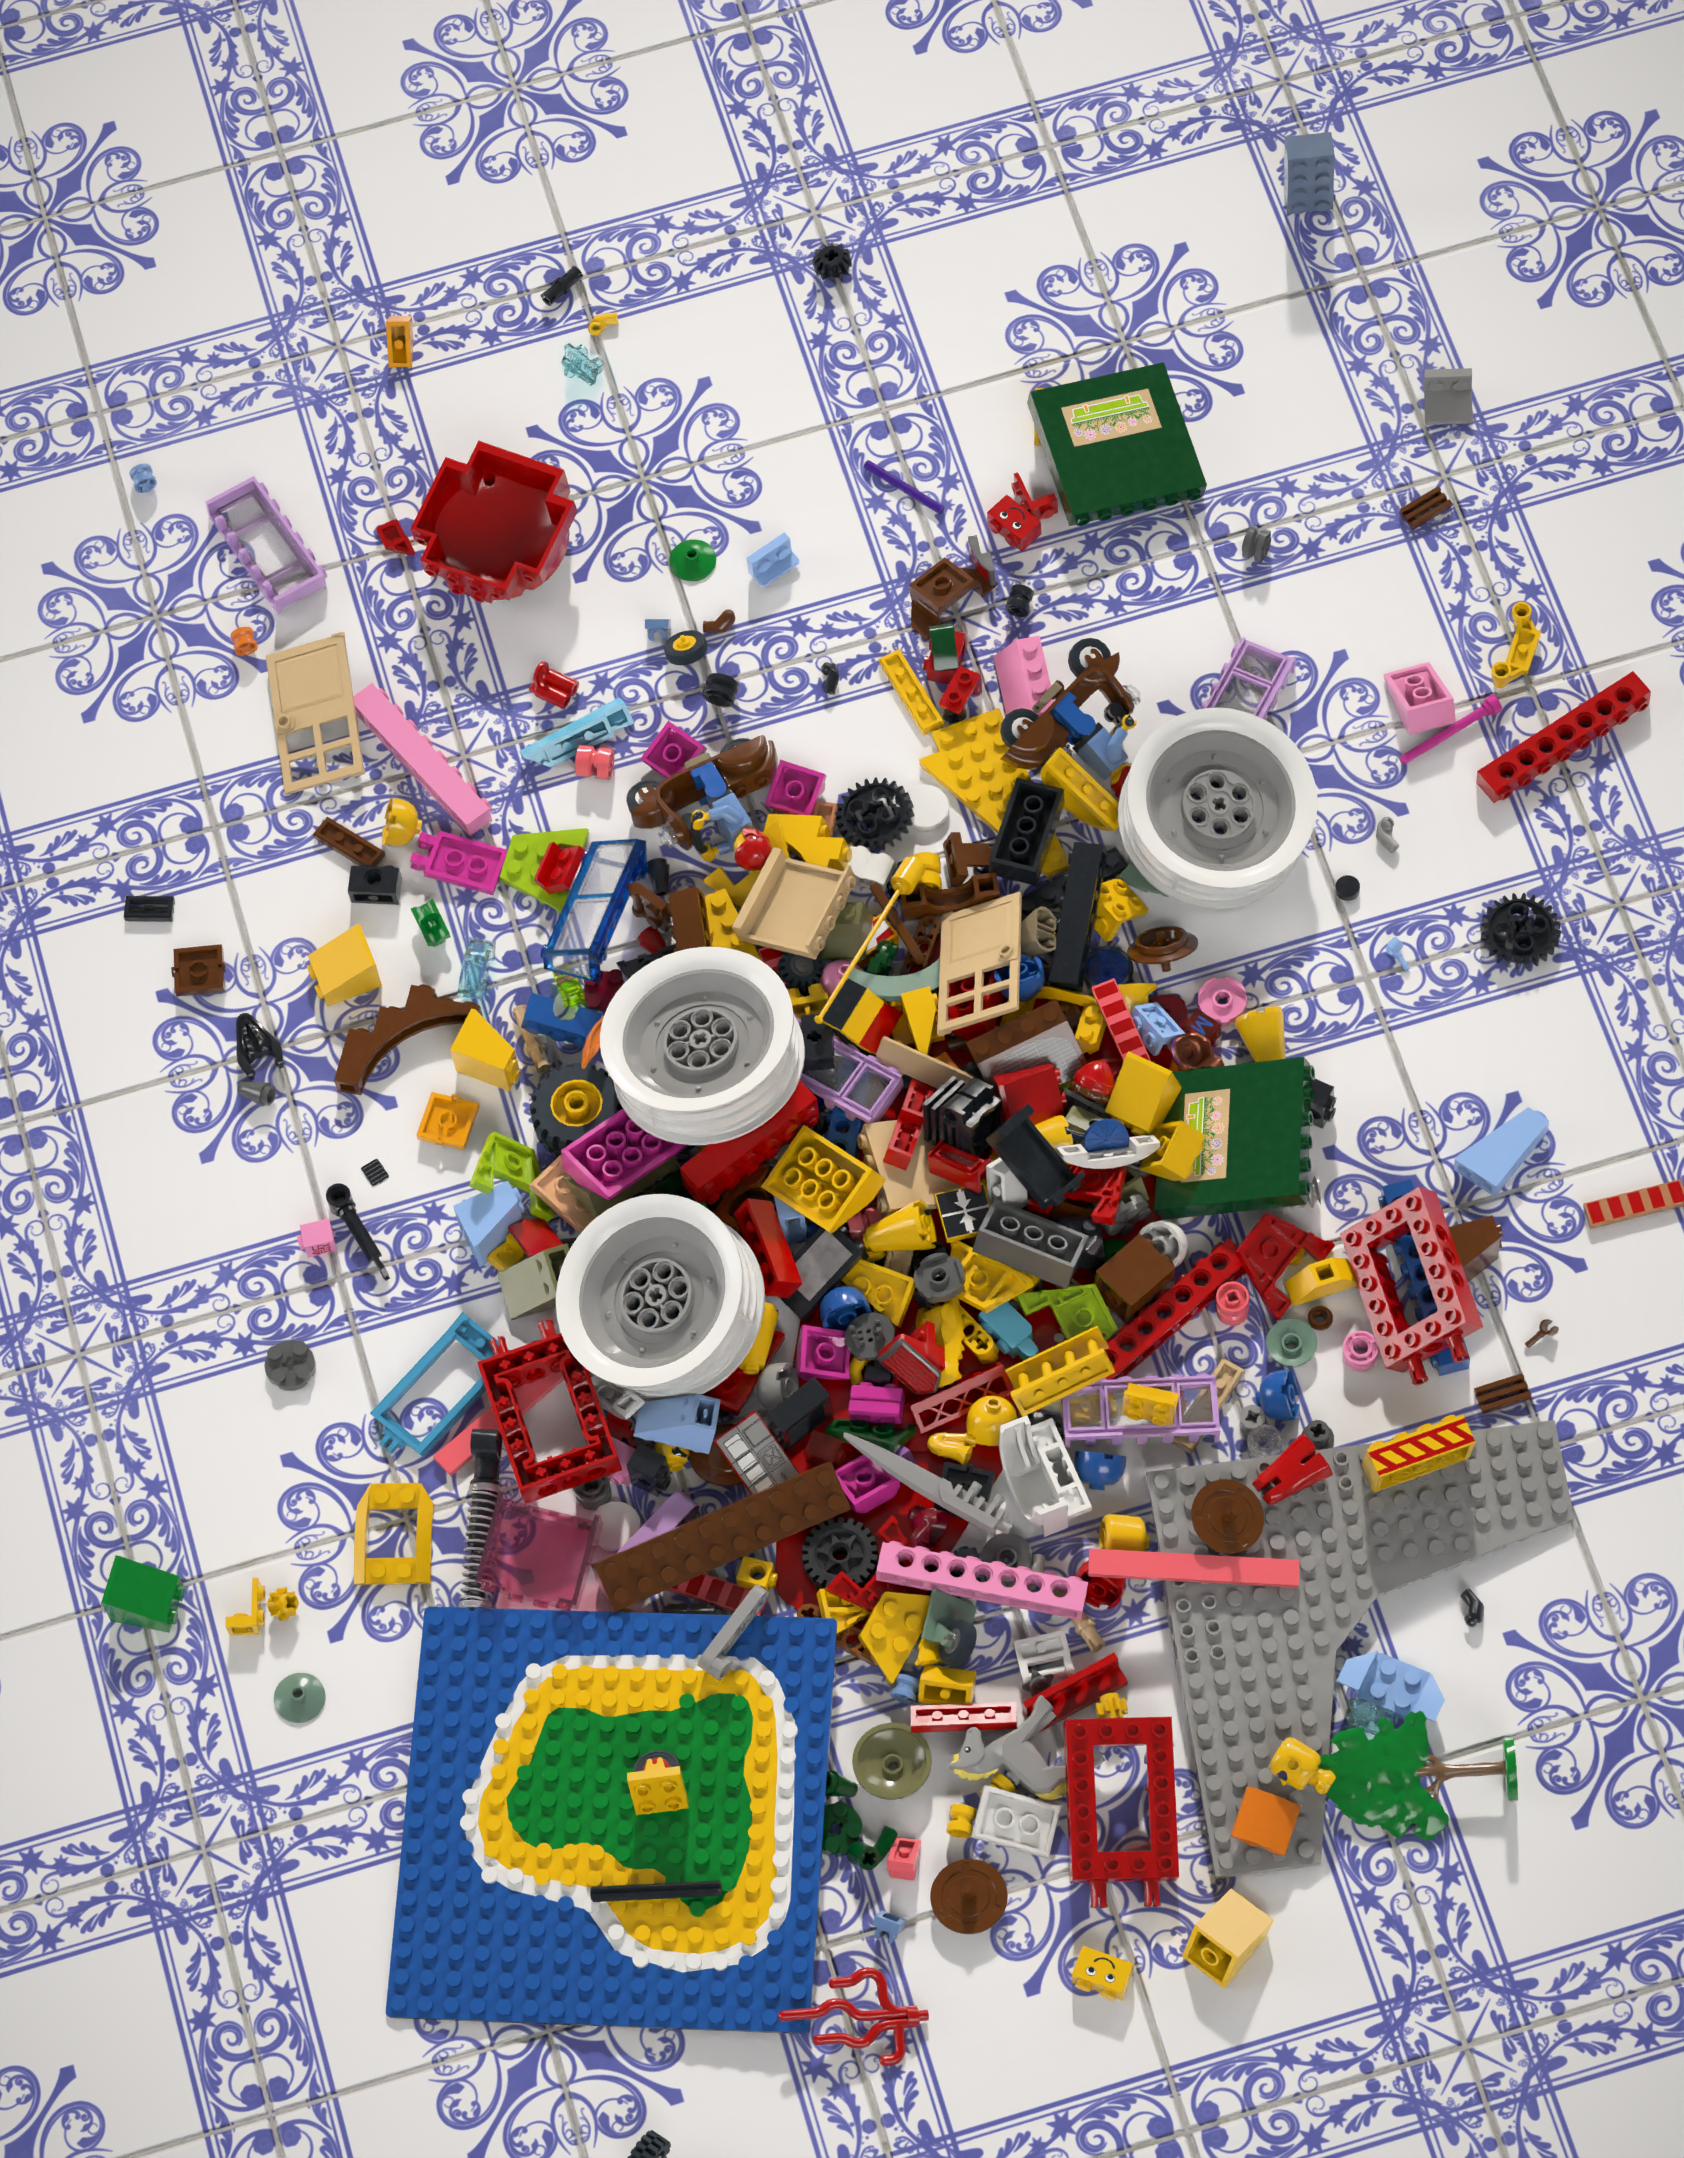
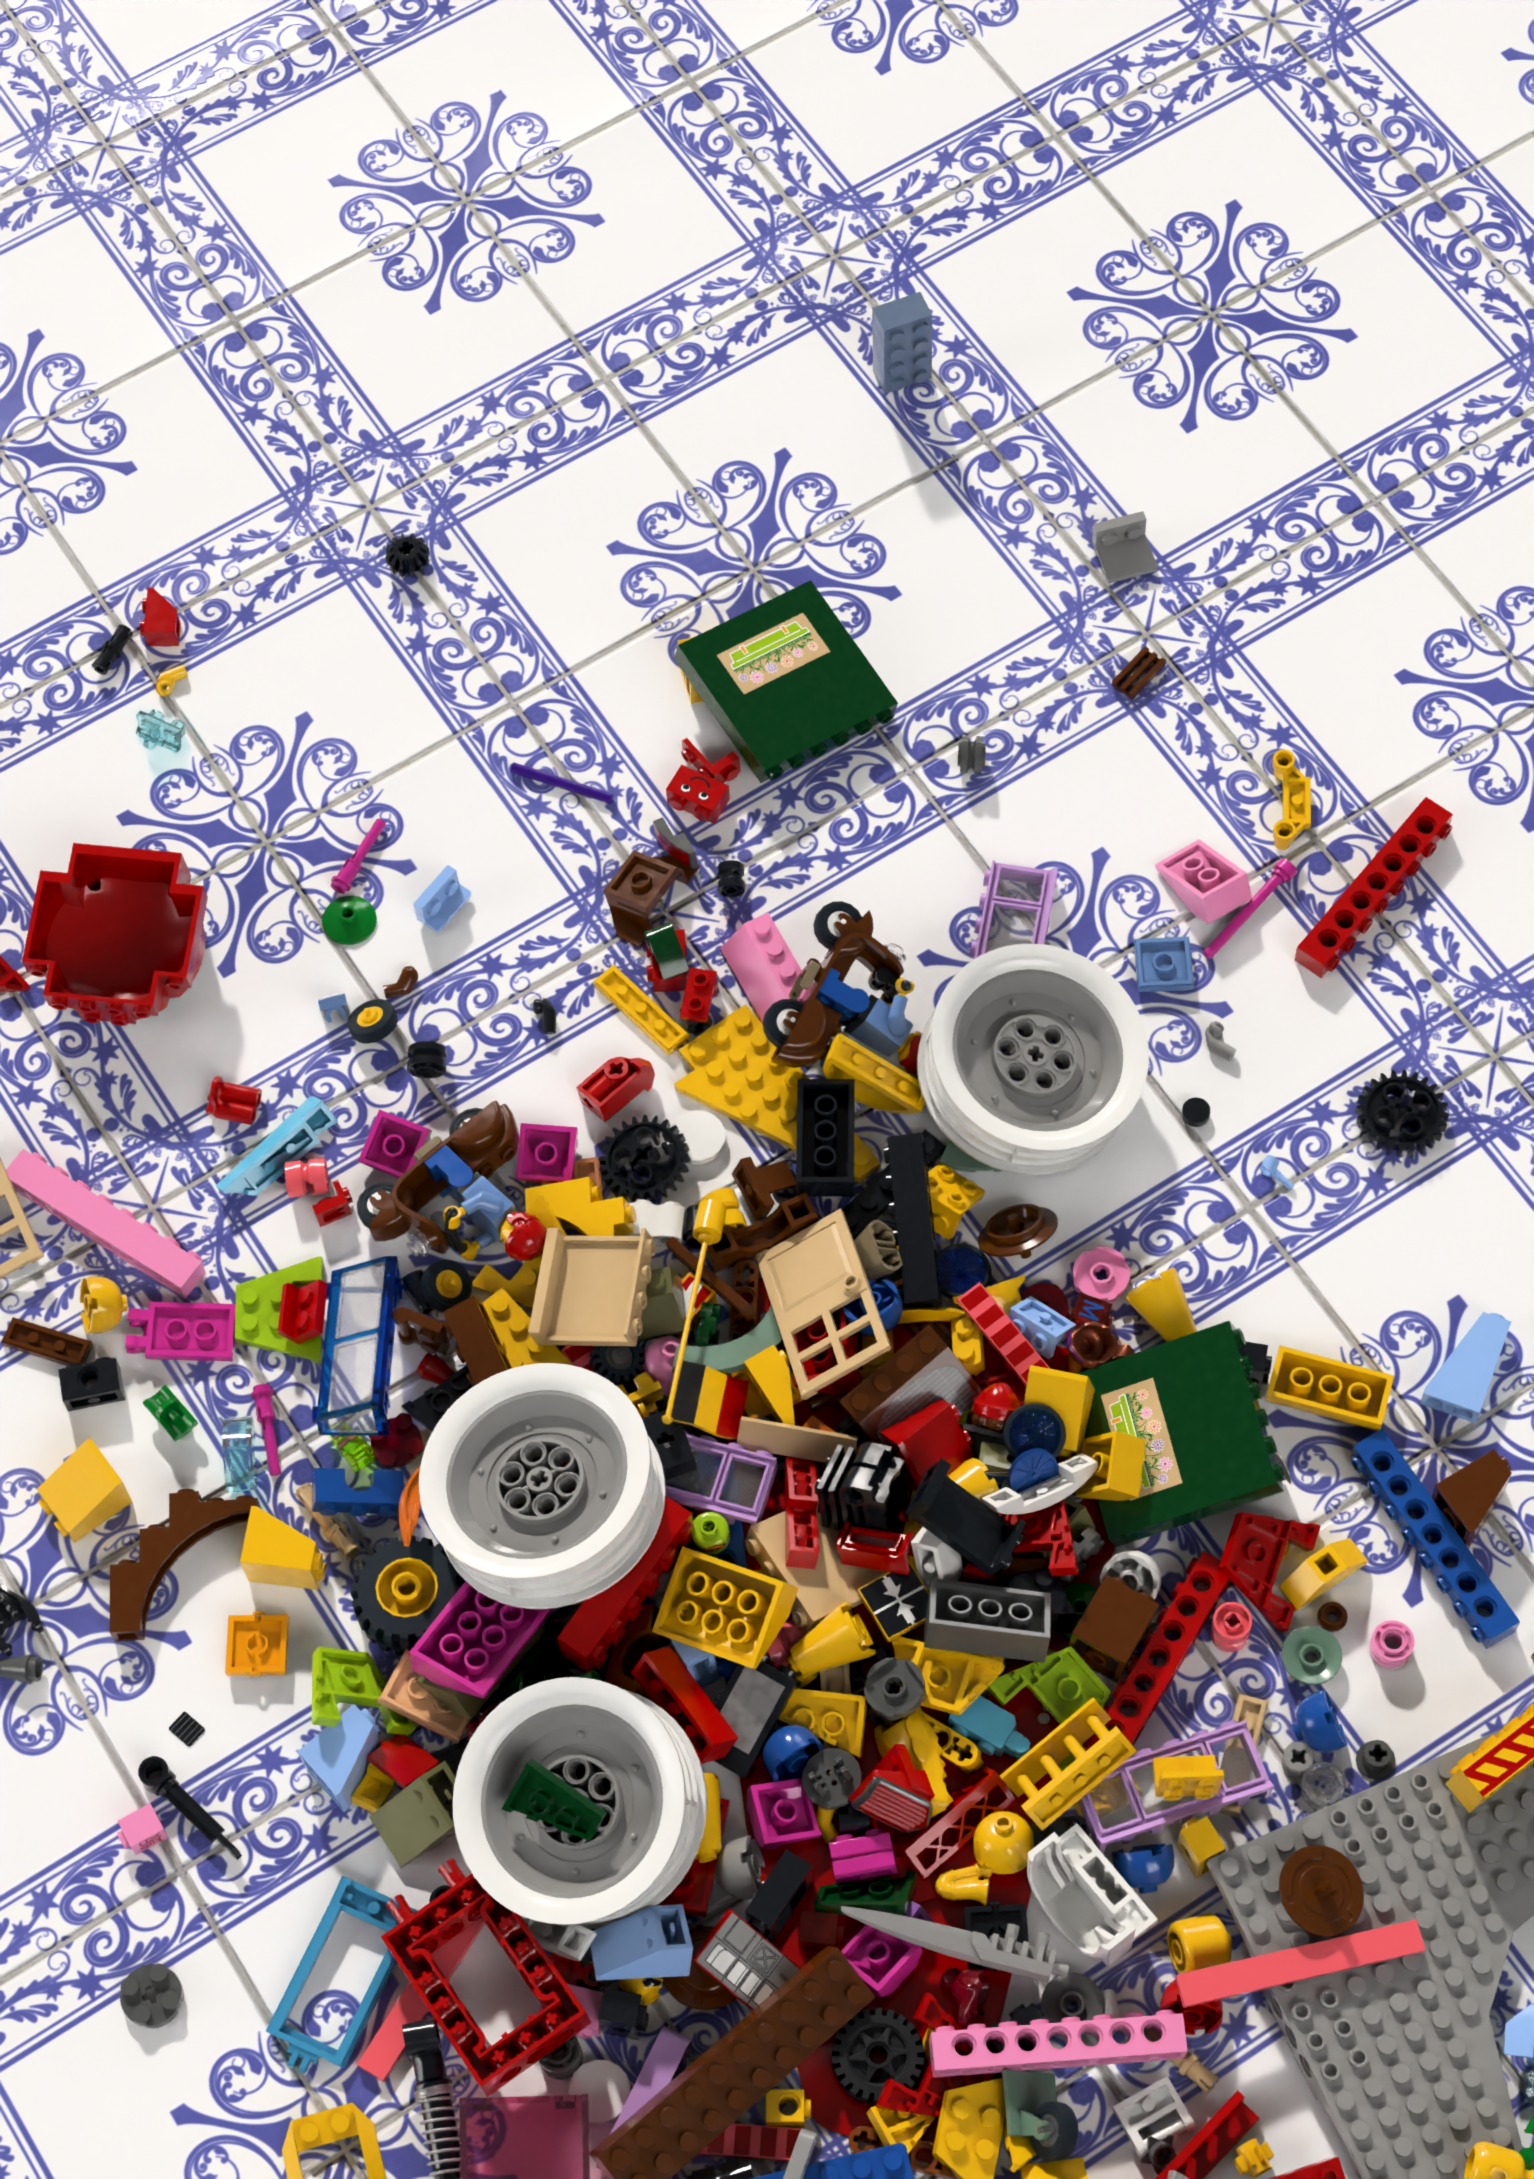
camera: 20 degrees left, 0 degrees up
(507, 939) = (265, 1415): none -> dark pink pin
(609, 271) = (161, 621): none -> red slope
(609, 792) = (333, 1208): none -> red bracket
(635, 1286) = (552, 1800): none -> dark green wing
(680, 873) = (445, 1284): none -> black wheel
(695, 526) = (352, 866): none -> dark pink pin
(831, 1121) = (710, 1533): none -> lime head
(869, 748) = (615, 1085): none -> red piece
(1119, 1103) = (1034, 1427): none -> clear blue wheel
(1146, 1458) = (1199, 1843): none -> yellow brick
(1293, 1471) = (1376, 1813): red piece -> none
(1361, 759) = (1163, 964): none -> medium blue plate
(1379, 1137) = (1329, 1388): none -> yellow brick
(1457, 1316) = (1498, 1574): brick -> none

